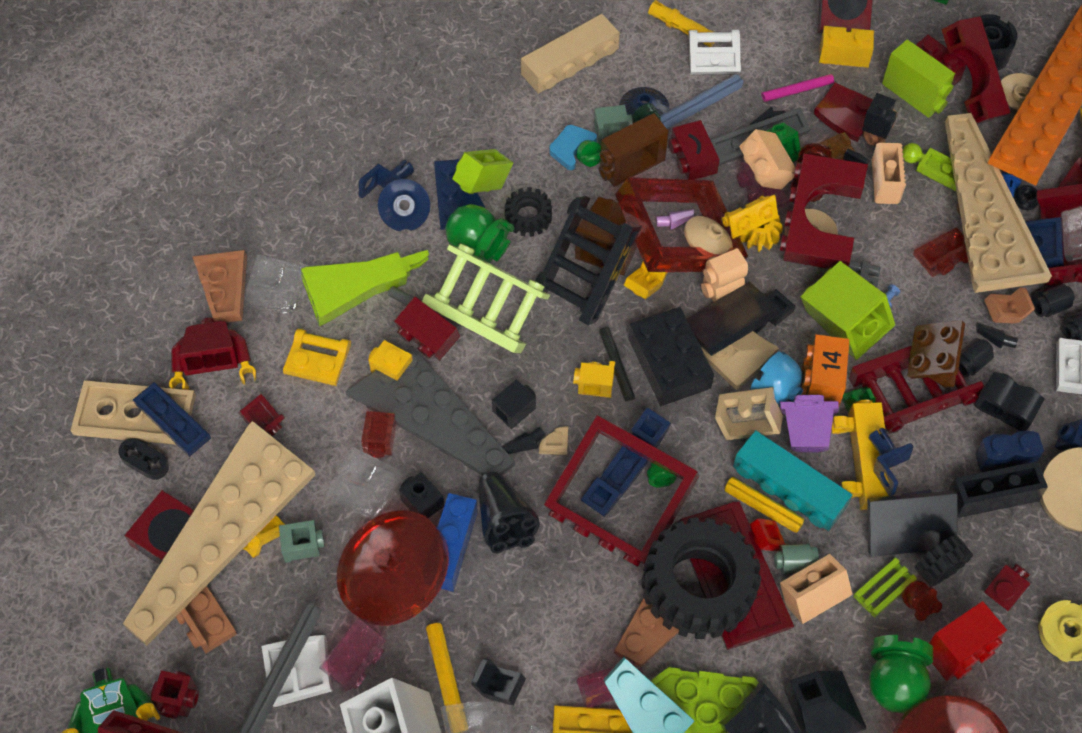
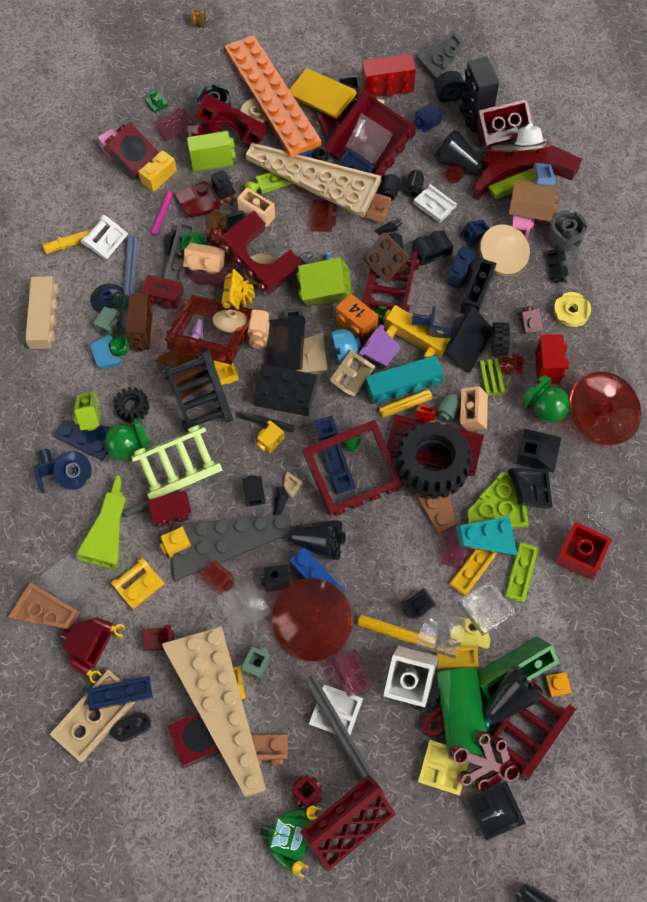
camera: 55 degrees left, 5 degrees up
(919, 22) = (174, 124): none -> clear pink bracket

